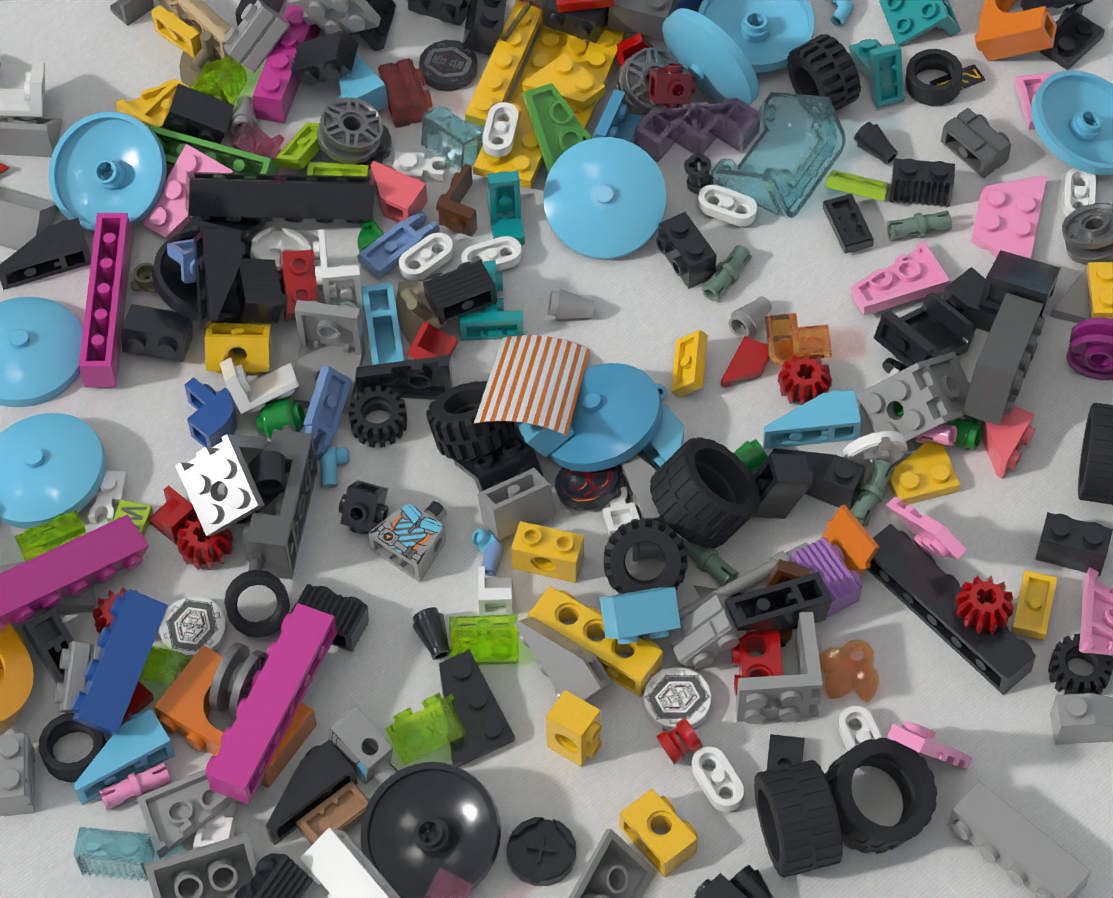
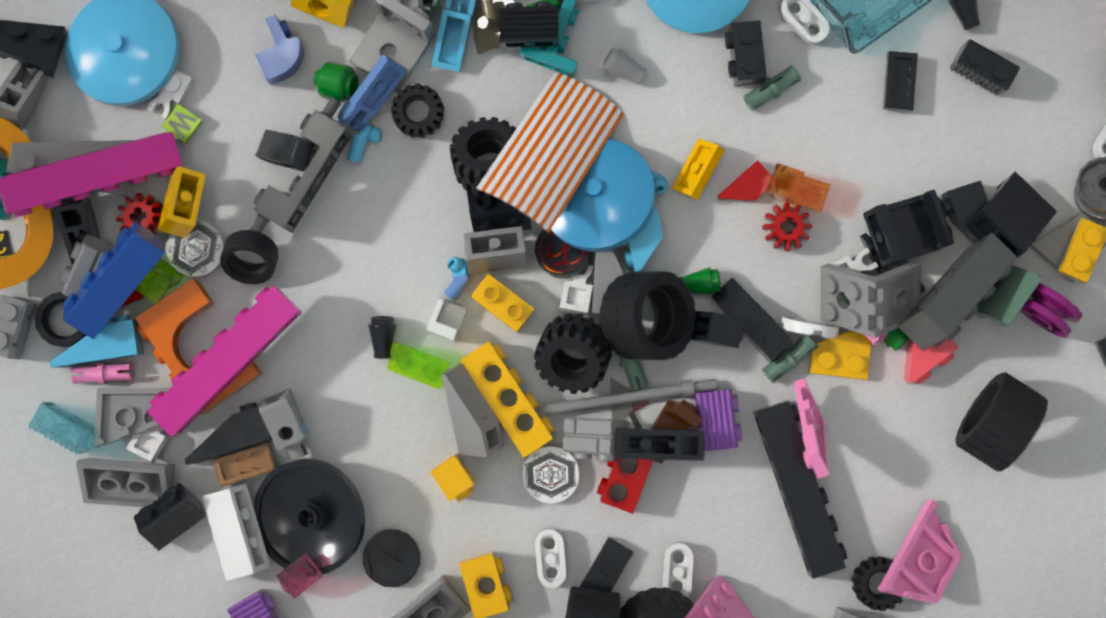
camera: 20 degrees right, 30 degrees up
(50, 535) = (106, 125): clear neon green bracket -> none
(163, 574) = (181, 202): none -> yellow brick
(172, 514) = (215, 138): red panel -> none
(203, 549) = (221, 178): red gear -> none
(228, 465) = (255, 129): bracket -> none
(234, 677) = (208, 323): flat silver wheel -> none
(253, 395) = (325, 49): white bracket -> none
(349, 613) = (305, 288): black brick -> none
(363, 506) = (370, 199): black brick -> none
(410, 378) = (452, 87): black wing -> none
(411, 538) = (399, 242): torso -> none
(426, 729) = (340, 422): clear neon green bracket -> none
(431, 343) = (488, 64): red panel -> none
(475, 708) = (385, 418): black wing -> none
(640, 613) = (545, 407): medium azure brick -> none
(672, 744) = (534, 516): red wheel -> none
(748, 318) = (768, 144): light grey cone -> none
(785, 695) = (635, 523): light grey bracket -> none
(818, 421) = (787, 271): medium azure slope -> none
(846, 674) = (692, 510): clear orange plate -> none
(852, 539) = (749, 400): orange piece -> none
(857, 185) = (927, 46): lime tile -> none
(902, 282) = (919, 161): bright pink wing -> none
(919, 225) = (961, 108): sand green pin -> none
(976, 142) = (1054, 44): dark grey brick -> none
(984, 604) = (819, 523): red gear -> none
(1009, 216) = (1043, 133): bright pink wing -> none
(1034, 605) = (871, 514): yellow plate -> none
(1053, 351) = (1009, 296): none -> sand green slope
(1073, 543) = (930, 476): black brick -> none

